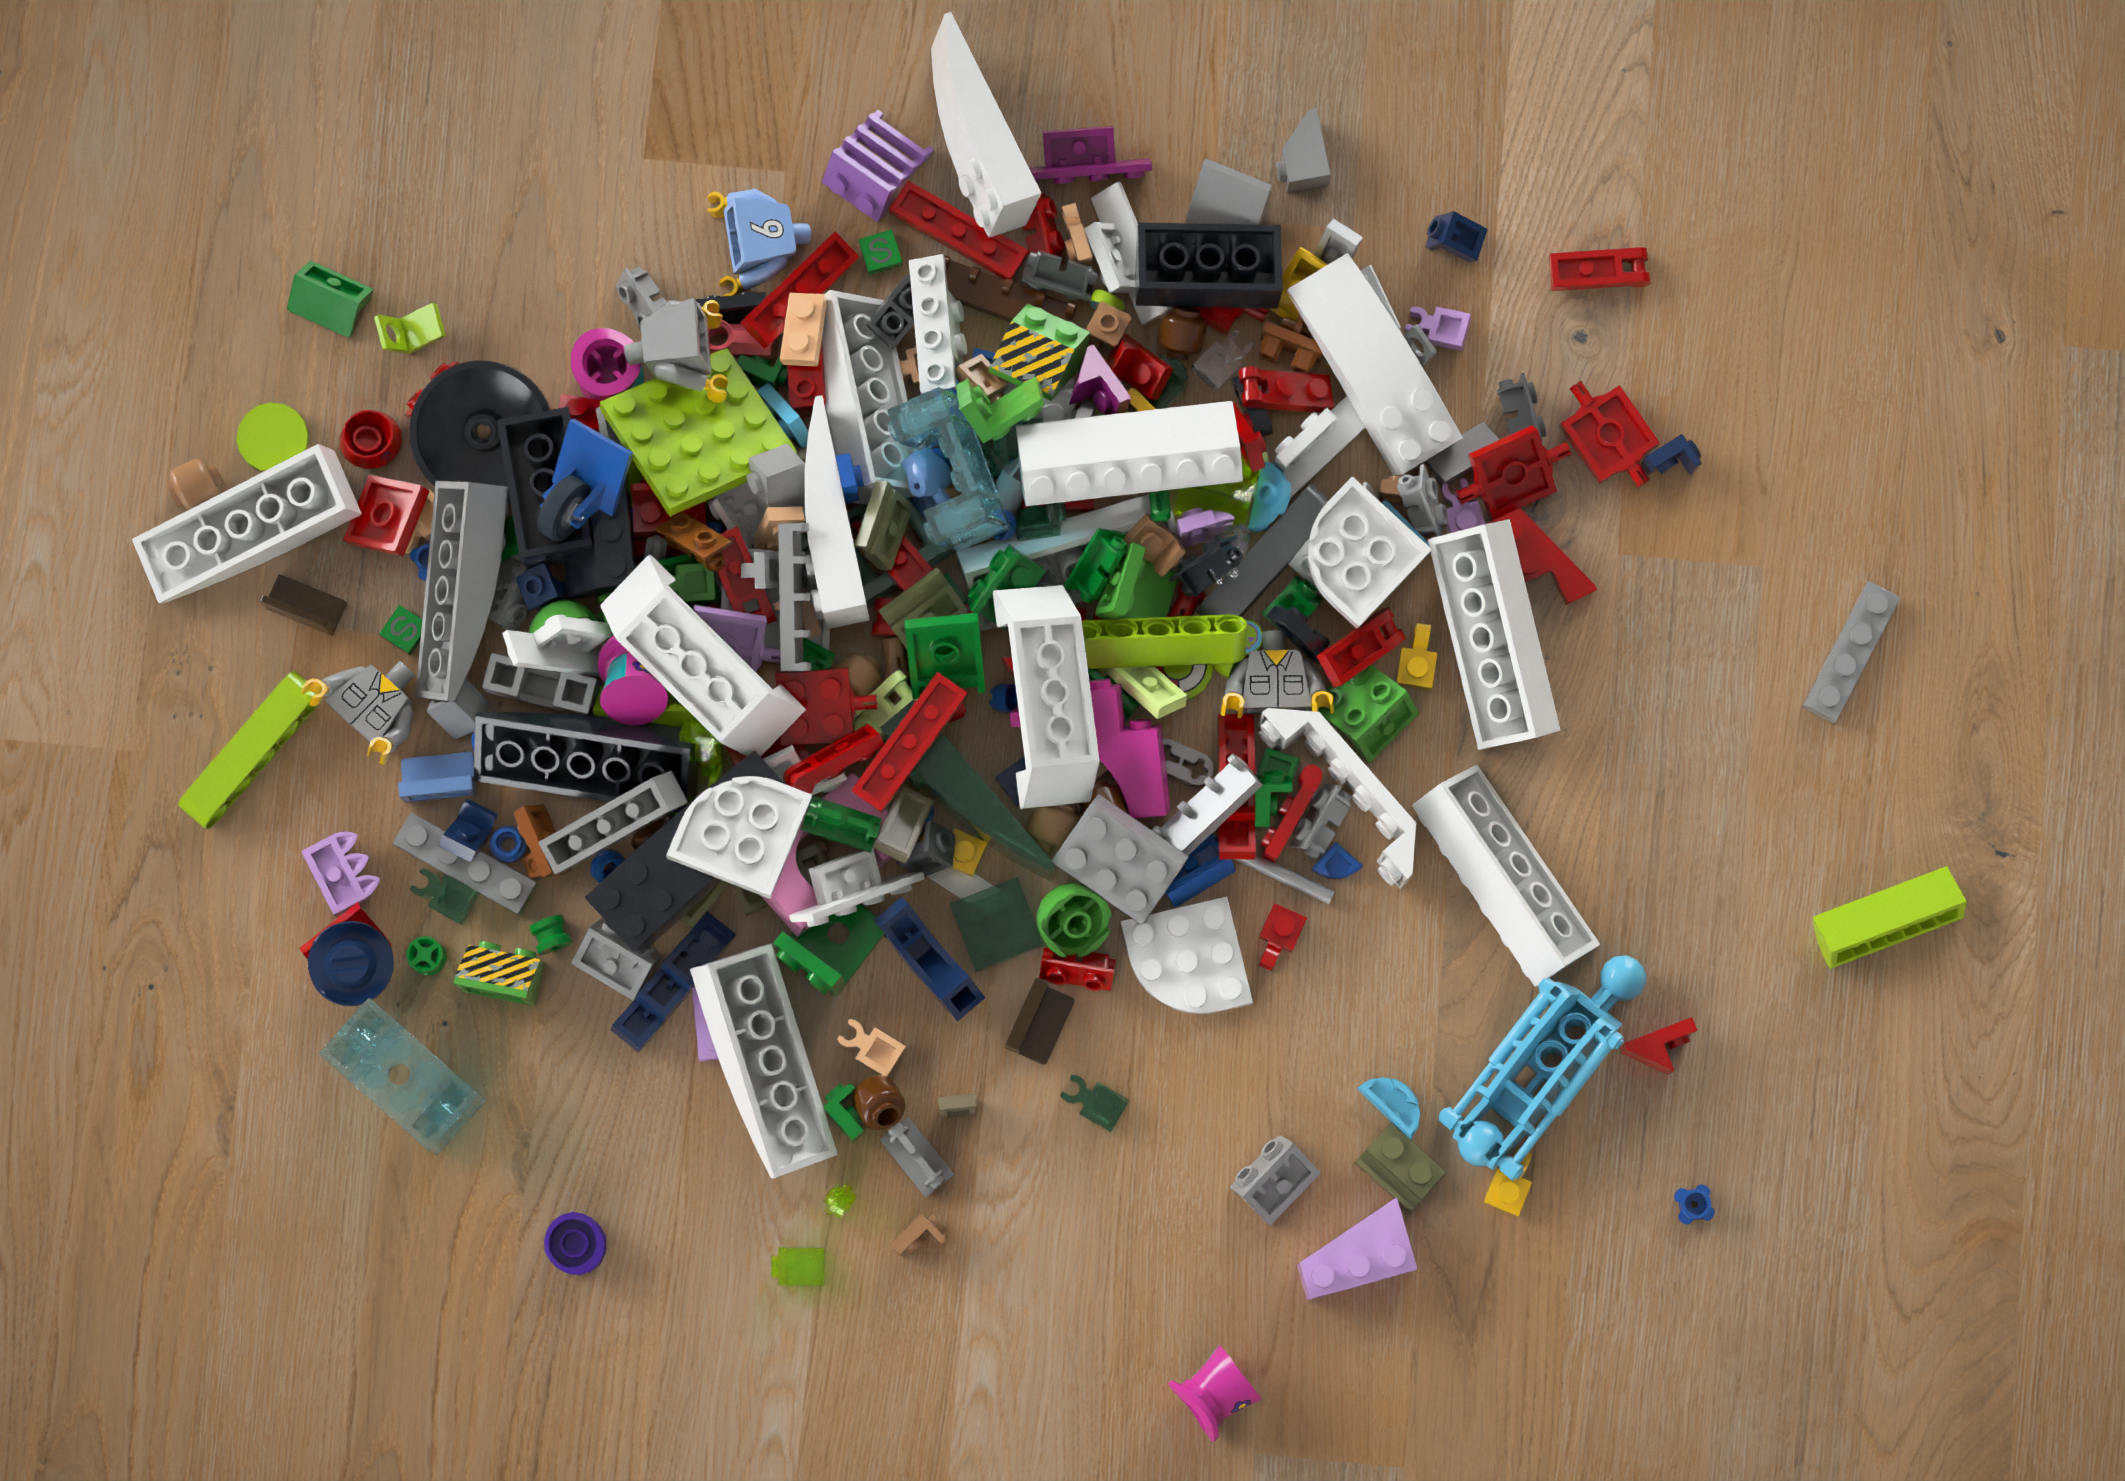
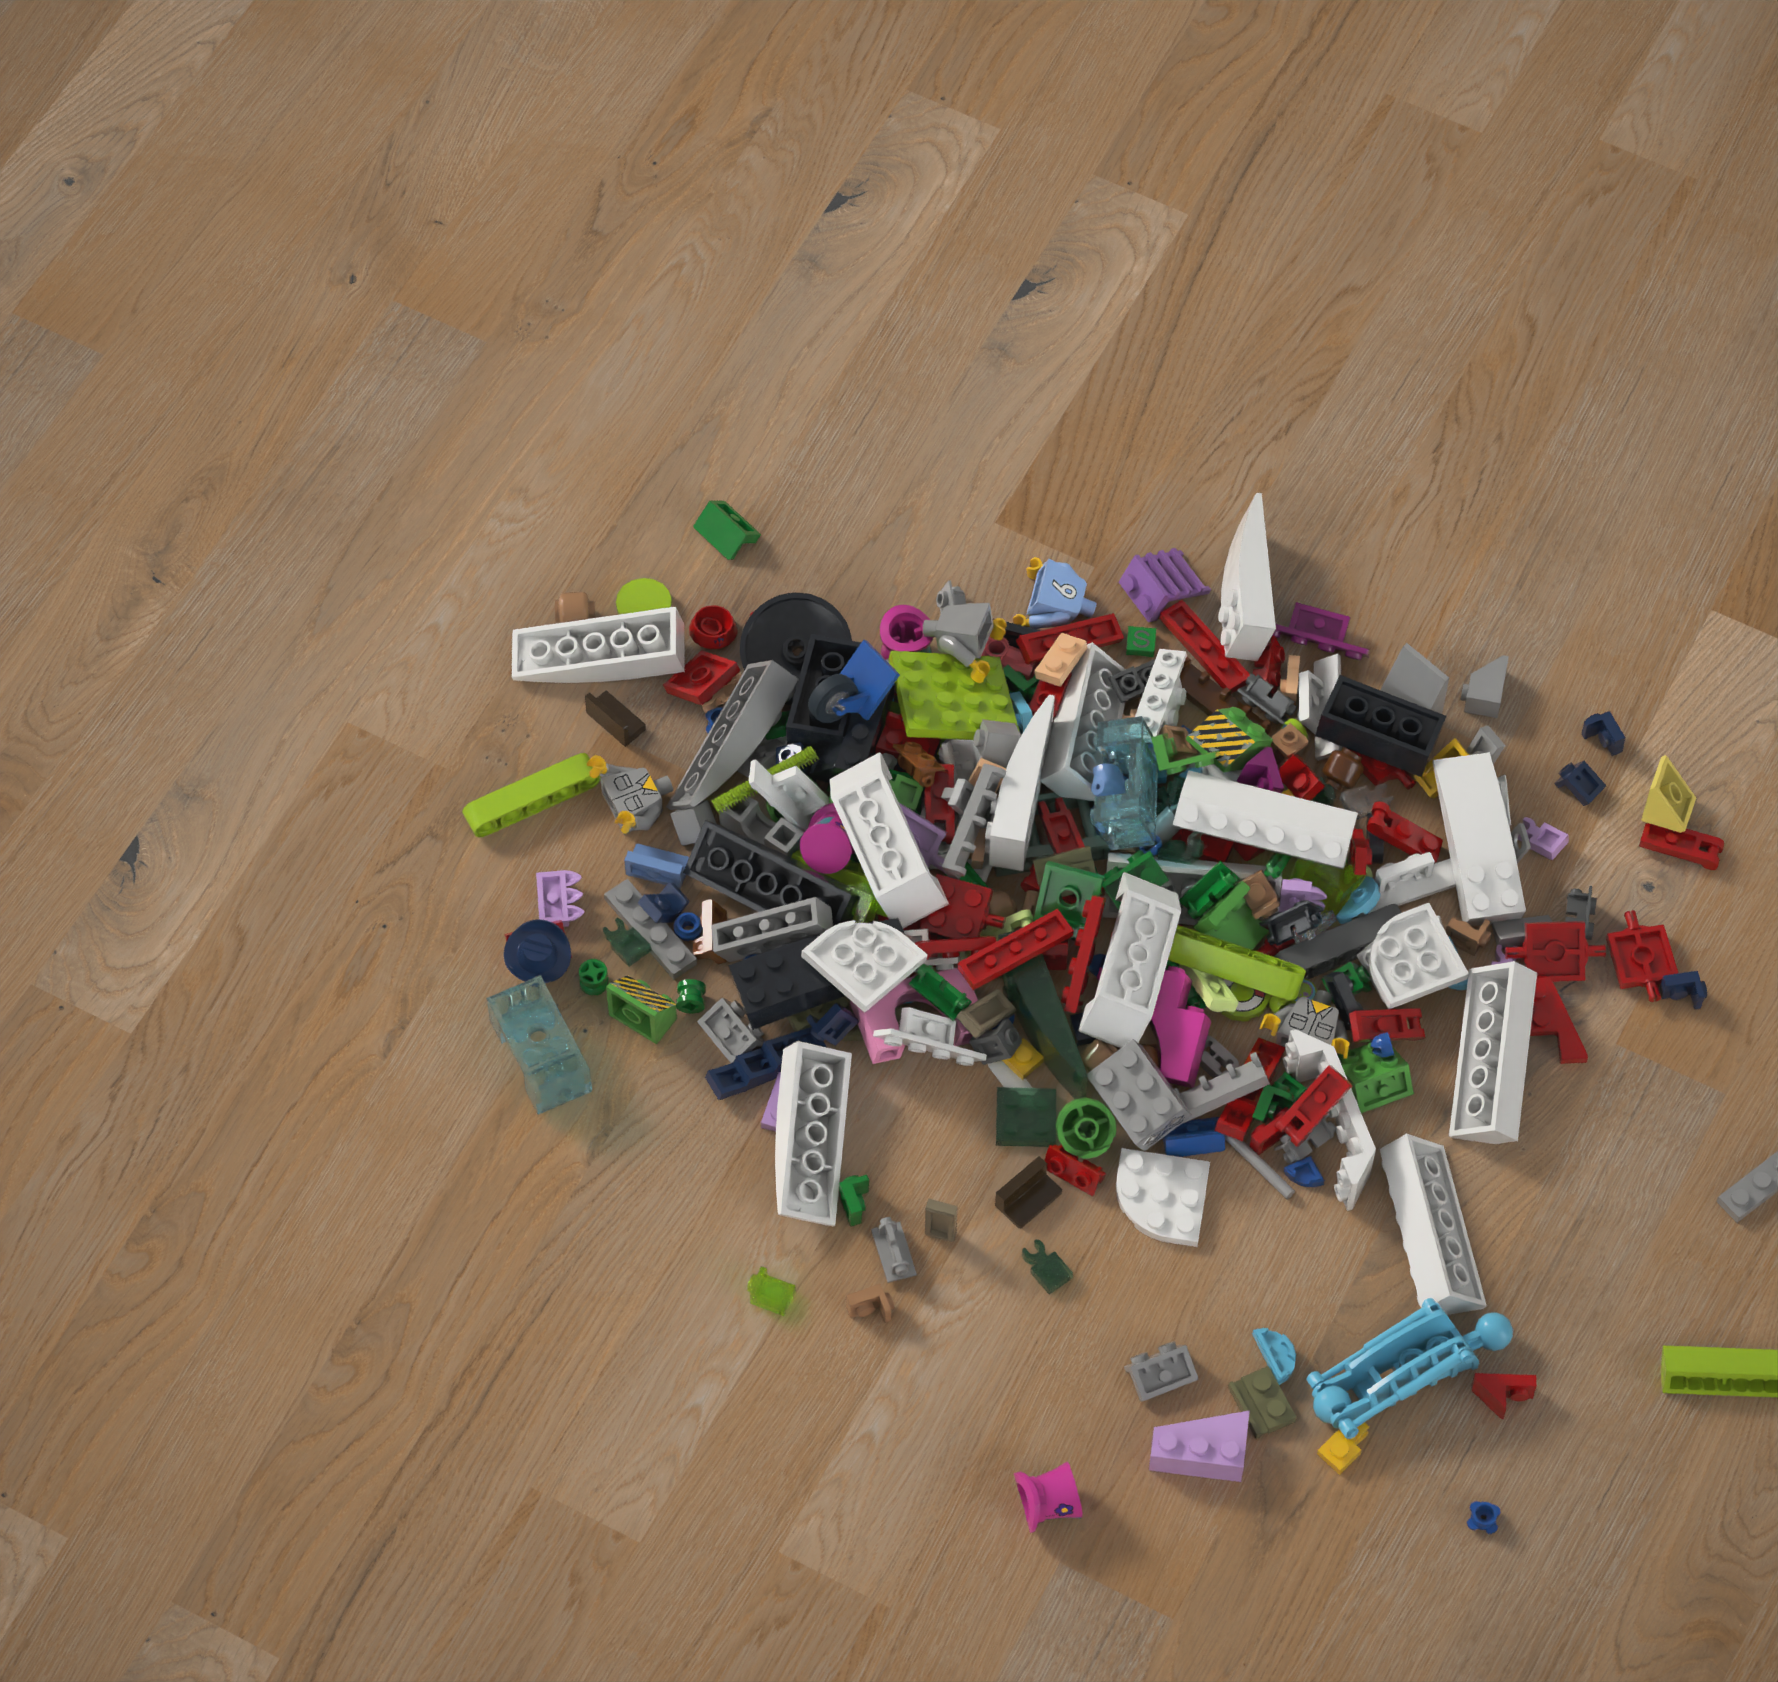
camera: 25 degrees right, 20 degrees down
(403, 630) = (677, 759): green tile -> none
(412, 330) = (777, 570): lime bracket -> none
(527, 625) = (745, 789): none -> lime axle
(575, 1243) = (611, 1212): dark purple piece -> none
(731, 911) = (833, 1024): none -> dark blue bracket
(824, 962) = (881, 1084): green bracket -> none
(839, 1200) = (821, 1256): clear neon green plate -> none
(850, 477) = (1050, 758): blue plate -> none
(876, 1051) = (896, 1166): light nougat plate -> none
(878, 1102) = (882, 1198): reddish brown head -> none
(883, 525) = (1061, 802): olive plate -> none
(929, 959) = (962, 1114): dark blue arch -> none
(987, 700) = (1078, 966): none -> red wing
(1280, 932) = (1240, 1203): red plate -> none
(1292, 337) = (1424, 804): dark orange hips -> none
(1326, 794) = (1314, 1104): none -> red plate
(1368, 680) = (1382, 1045): none -> blue hinge
(1417, 664) = (1427, 1059): yellow plate -> none
(1423, 491) = (1479, 935): light grey hinge -> none
(1466, 159) = (1607, 731): none -> dark blue bracket
(1566, 222) = (1669, 799): none -> light yellow slope

